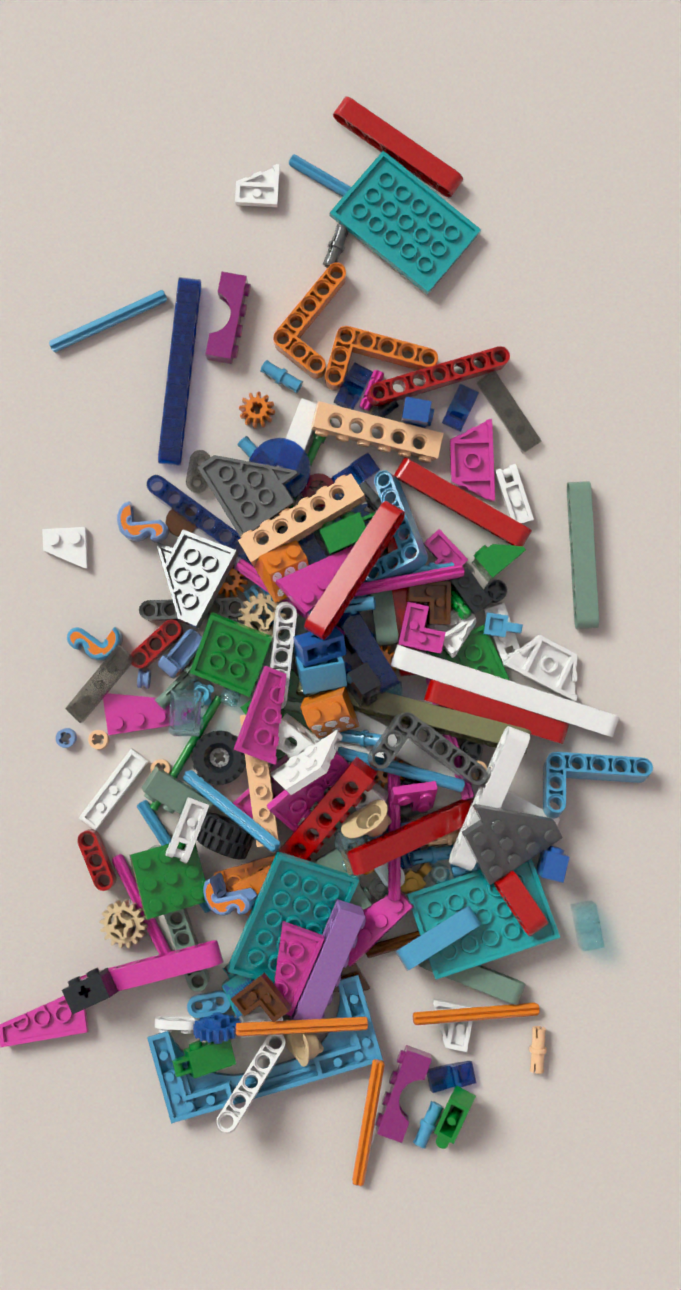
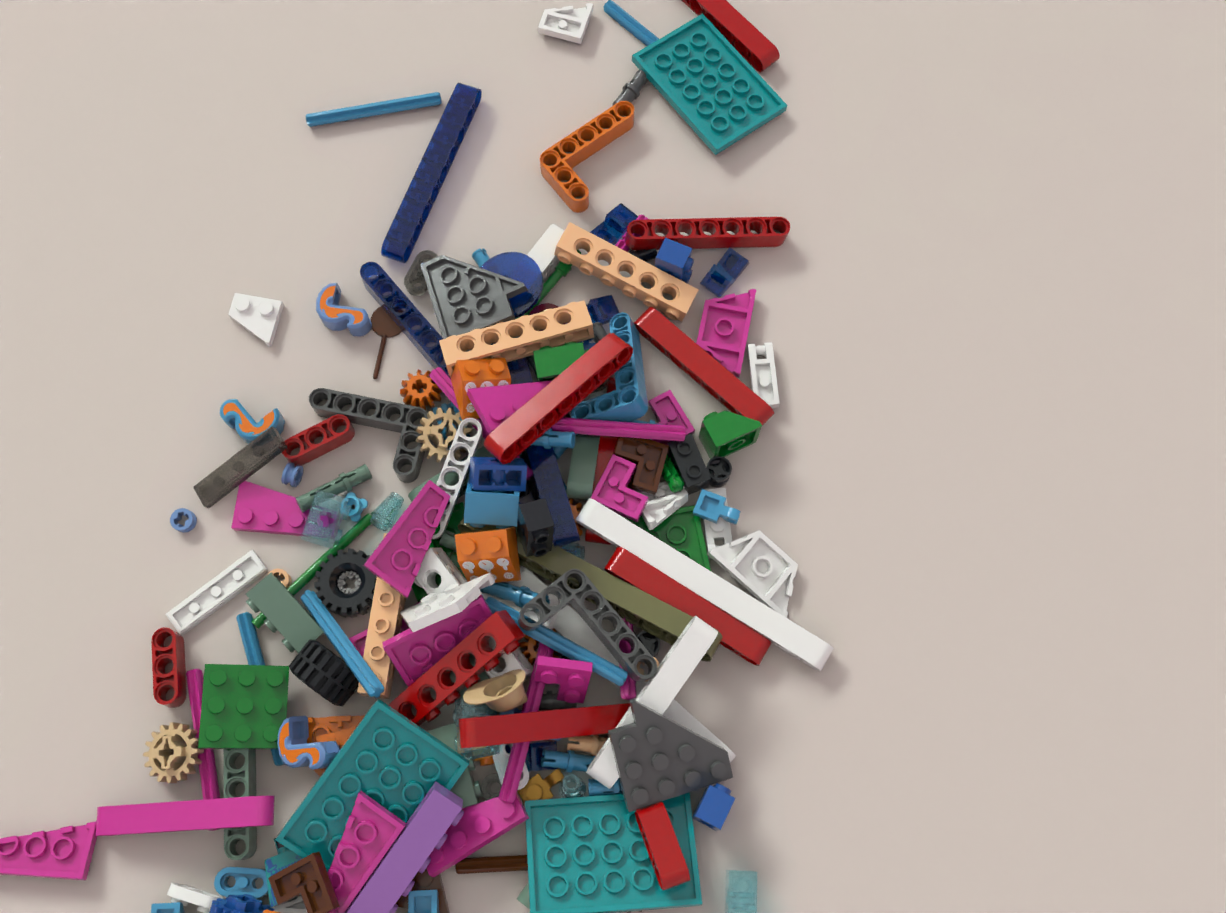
camera: 15 degrees right, 15 degrees down
(99, 733) = (214, 537): light nougat bush -> none
(100, 985) = (100, 821): black brick -> none
(180, 654) = (343, 456): medium blue animal -> none
(187, 829) = (282, 651): white plate -> none
(195, 574) = (383, 372): wing -> none
(222, 344) = (486, 154): magenta arch -> none
(231, 654) = (394, 463): green plate -> none
(265, 410) = (494, 229): orange gear -> none
(281, 376) = (539, 199): dark azure pin -> none
(374, 351) = (644, 196): orange beam -> none
(438, 938) = (546, 863): dark azure beam -> none
(508, 412) = (777, 289): clear smoke tile -> none
(582, 555) = (827, 457): sand green beam -> none
(587, 772) = (782, 706): dark azure beam -> none

